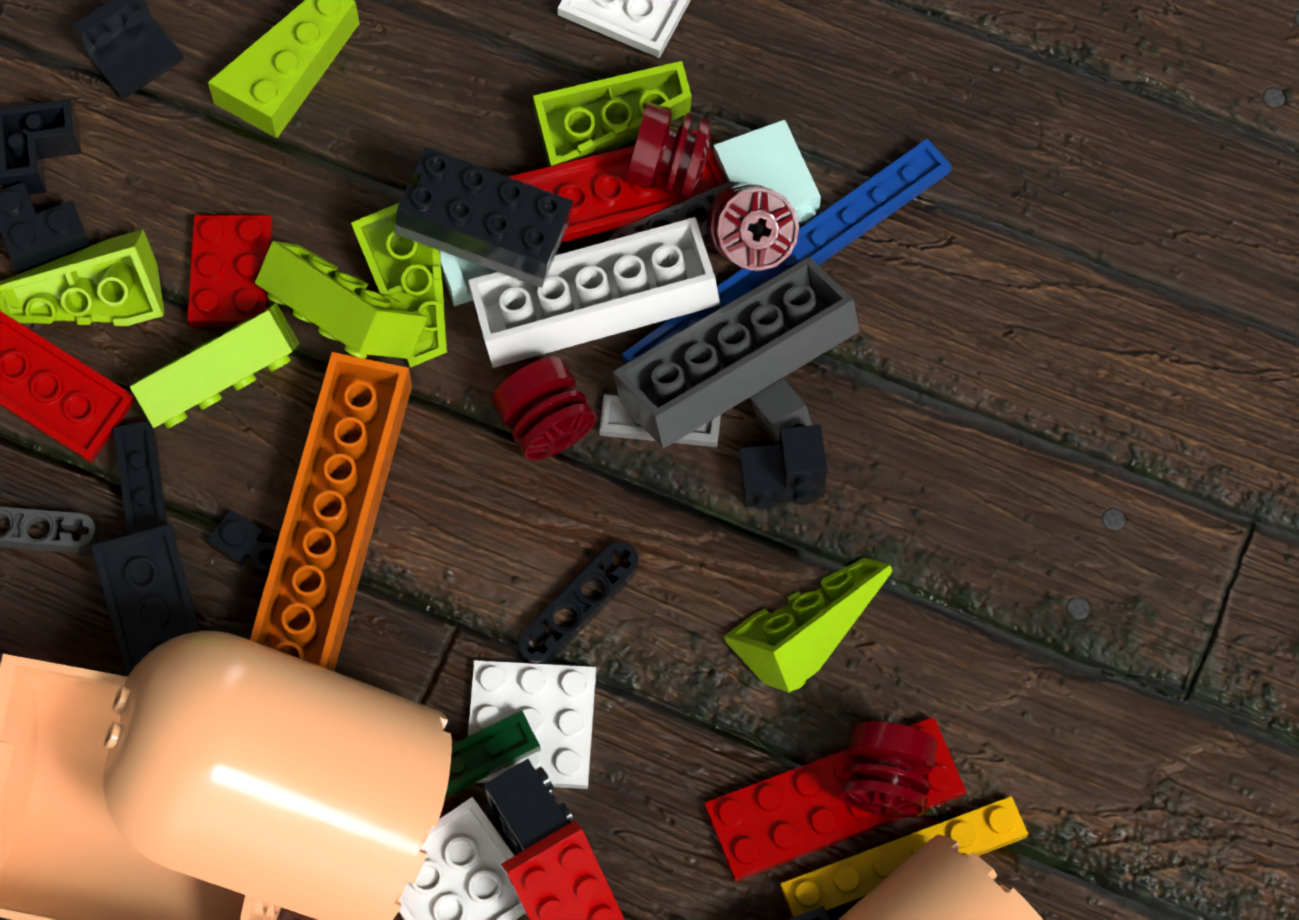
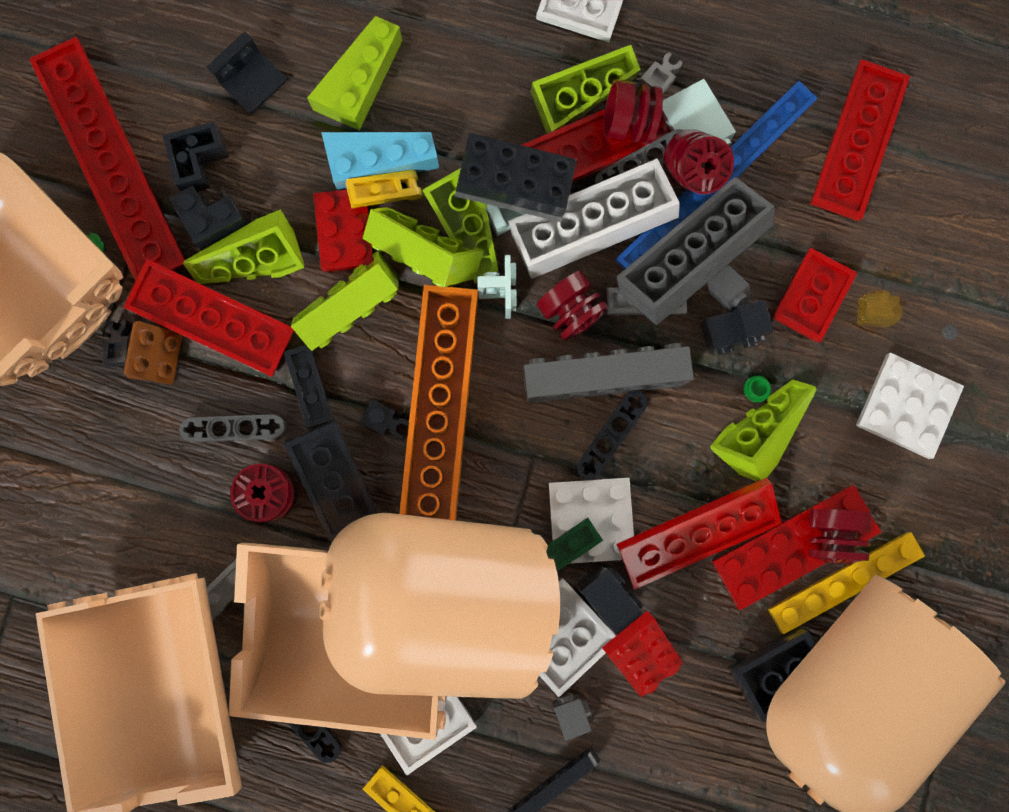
camera: 10 degrees left, 15 degrees up
(64, 634) = (279, 493): none -> dark red wheel
(296, 175) = (377, 153): none -> medium azure wedge
(297, 218) = (383, 188): none -> yellow plate
(442, 370) = (494, 286): none -> light aqua bracket
(577, 509) = (607, 374): none -> dark grey brick
(686, 754) = (700, 533): none -> red plate
(726, 111) = (661, 75): none -> light grey plate
(807, 563) = (757, 389): none -> green plate
(910, 439) = (814, 295): none -> red plate
(1004, 470) = (879, 309): none -> clear yellow brick
(1008, 232) = (860, 140): none -> red plate
(1035, 615) = (910, 406): none -> white plate

